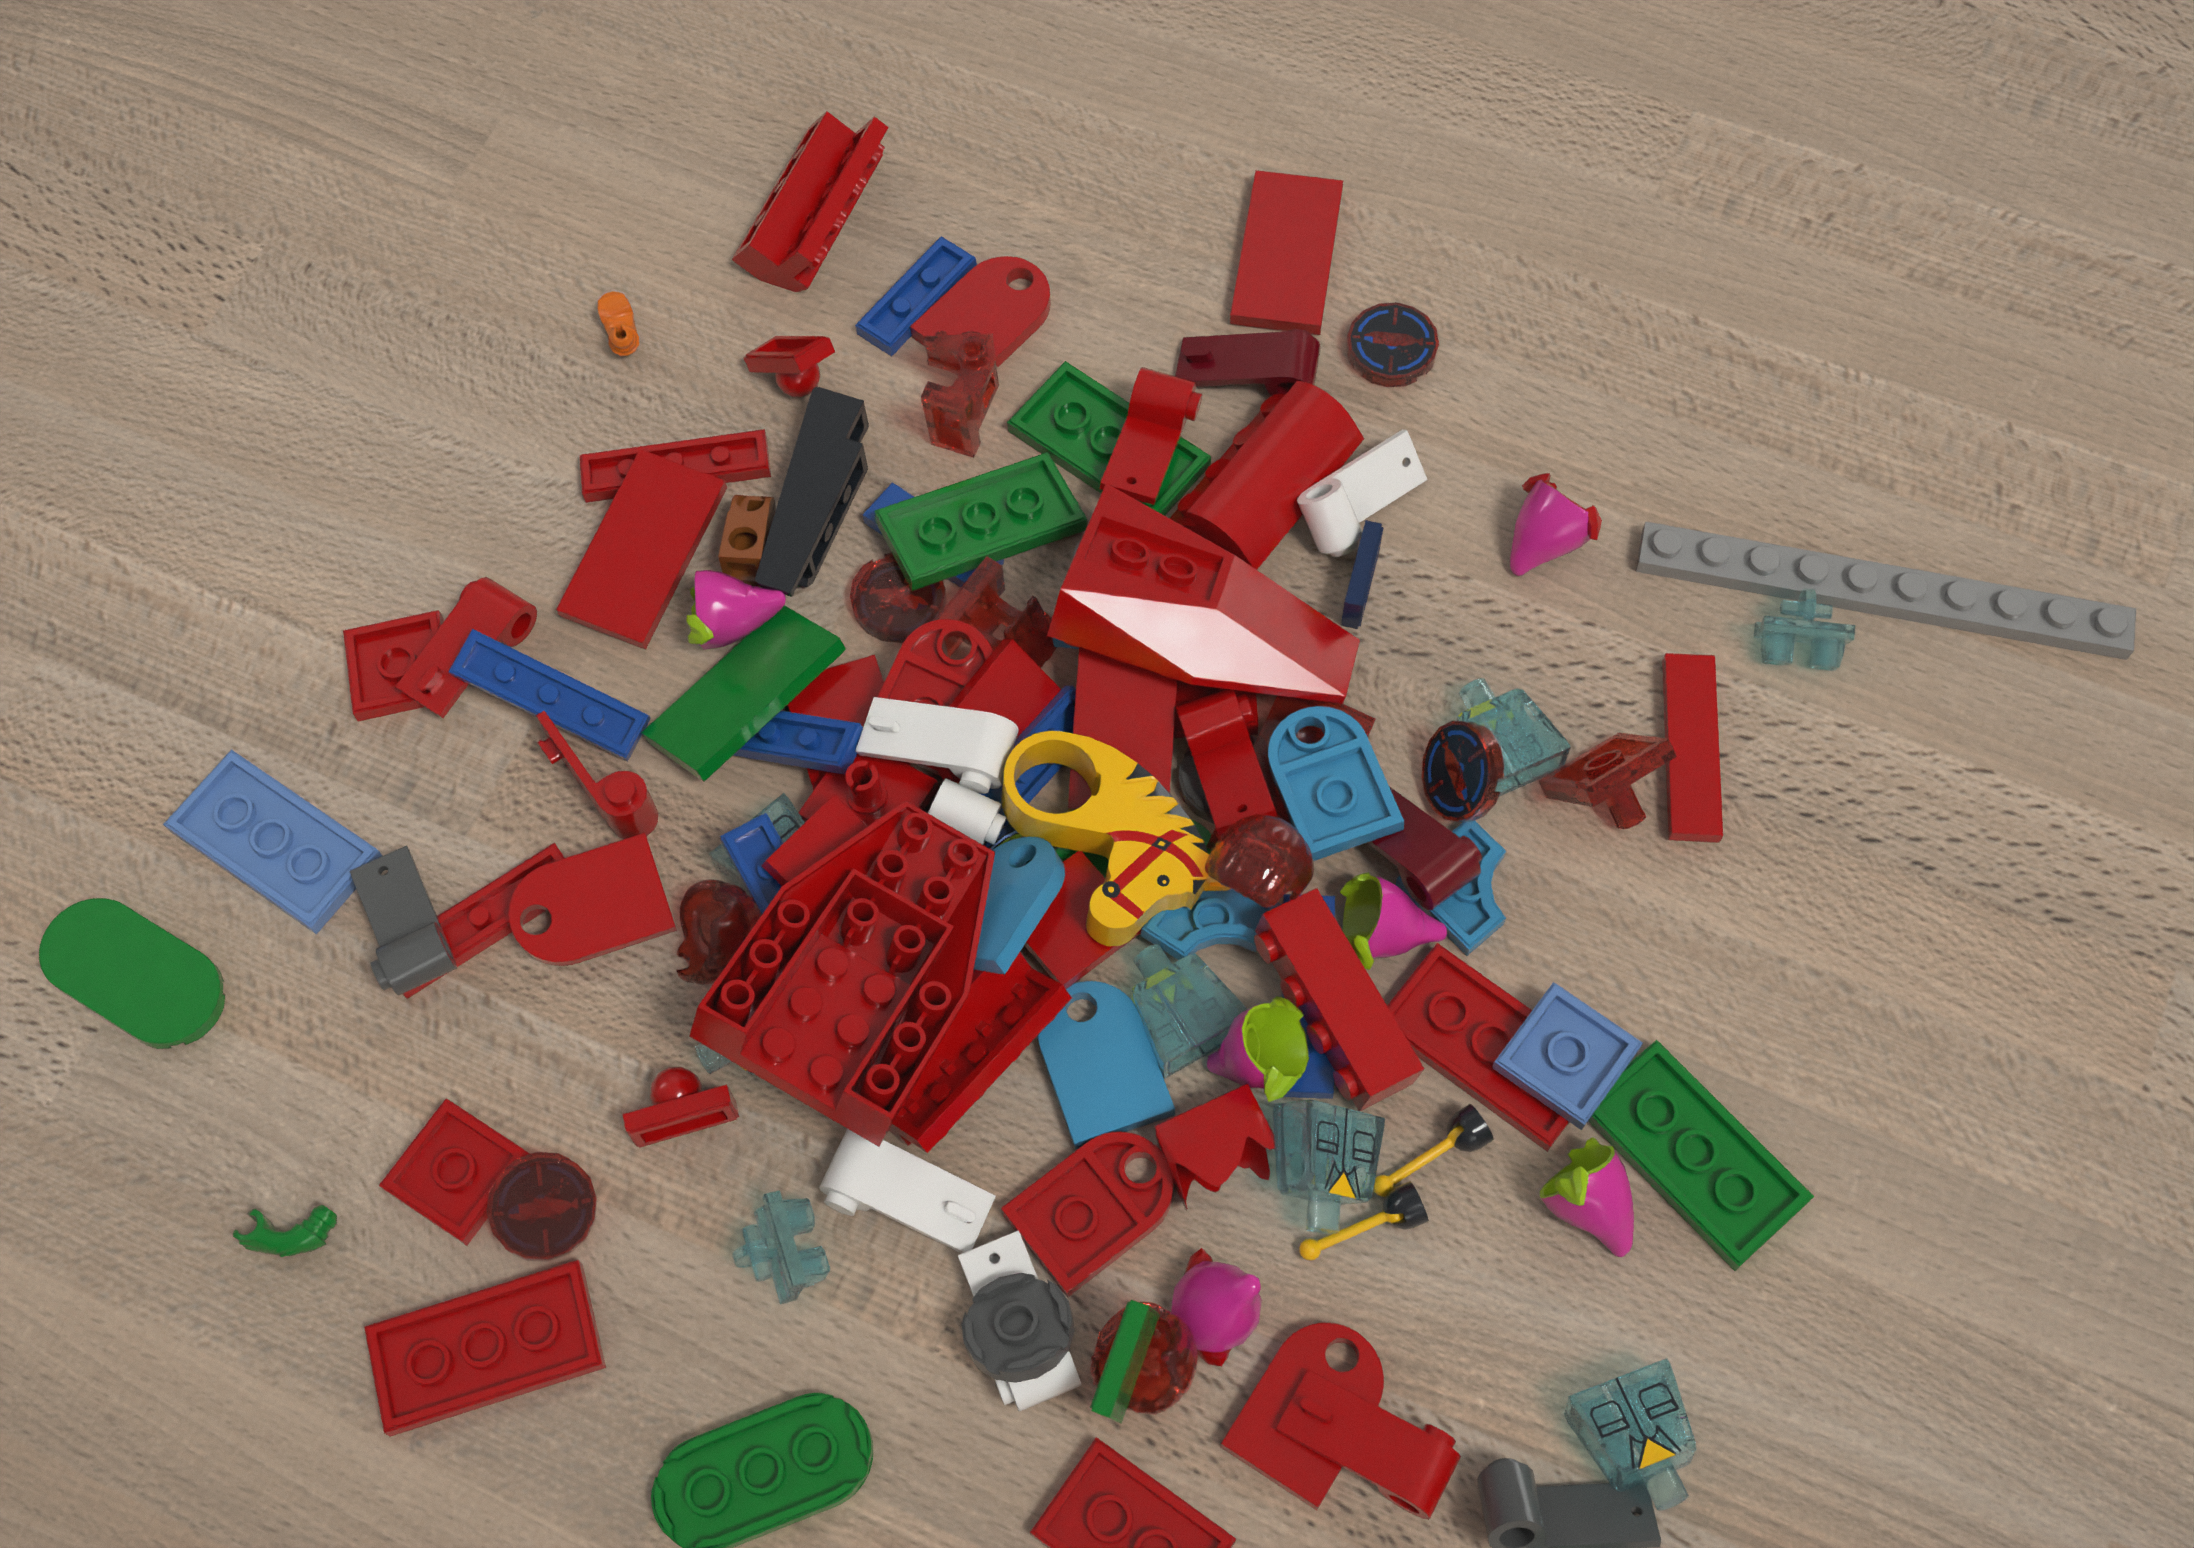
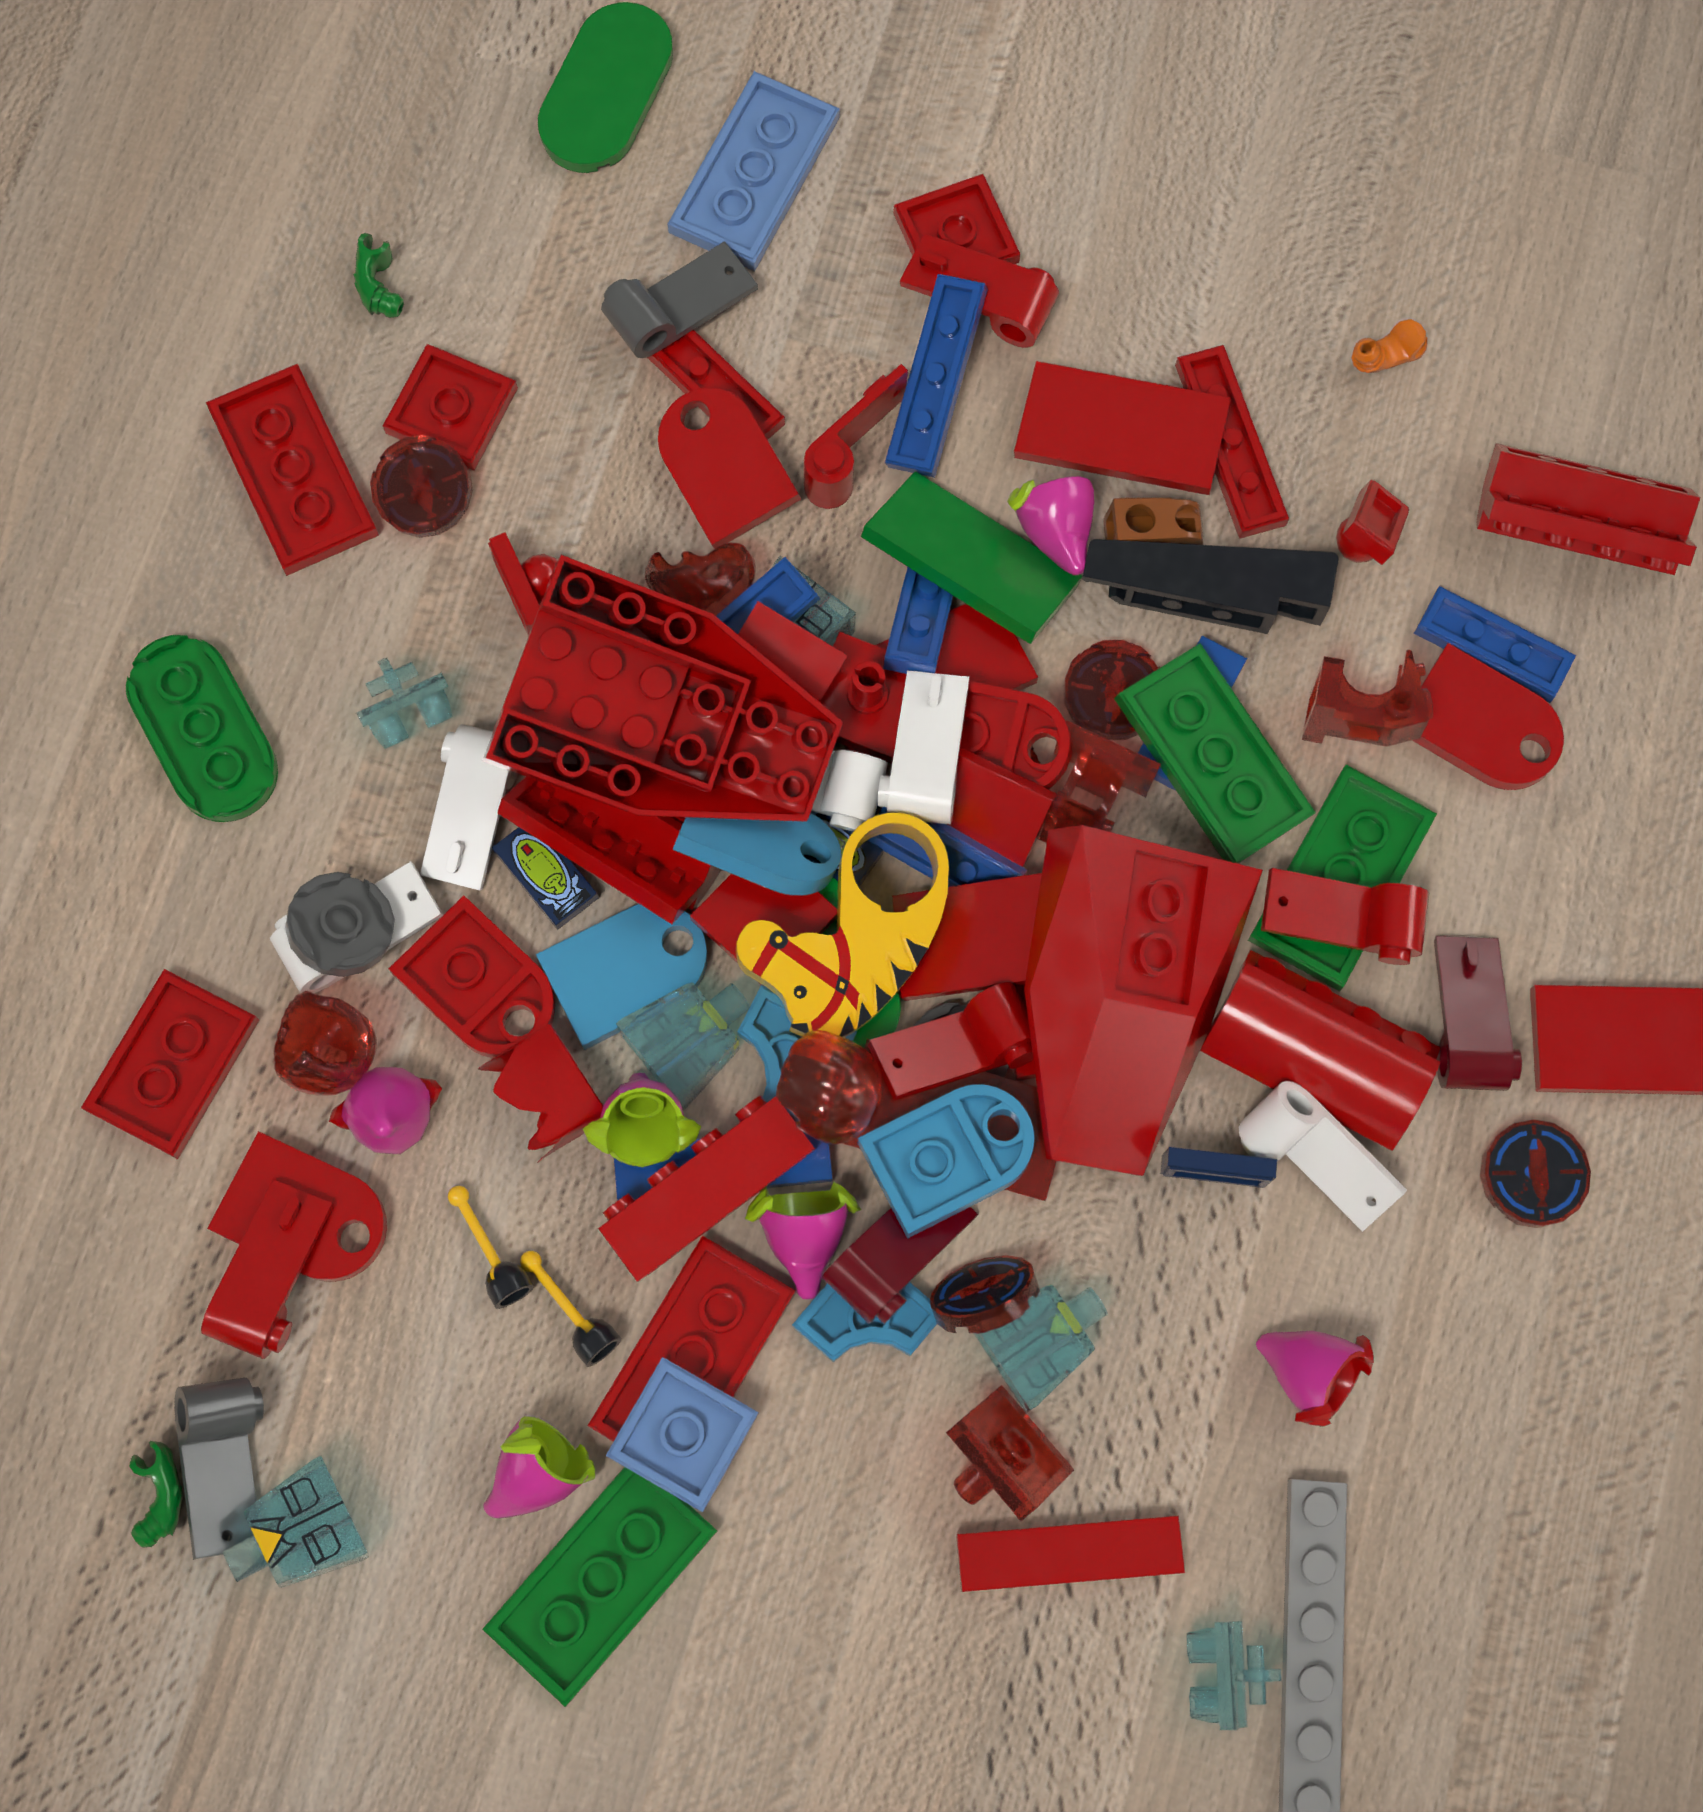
camera: 75 degrees right, 10 degrees up
(991, 1128) = (545, 876): none -> tile
(1124, 1361) = (302, 1021): green tile -> none
(1326, 1157) = (538, 1196): clear light blue torso -> none

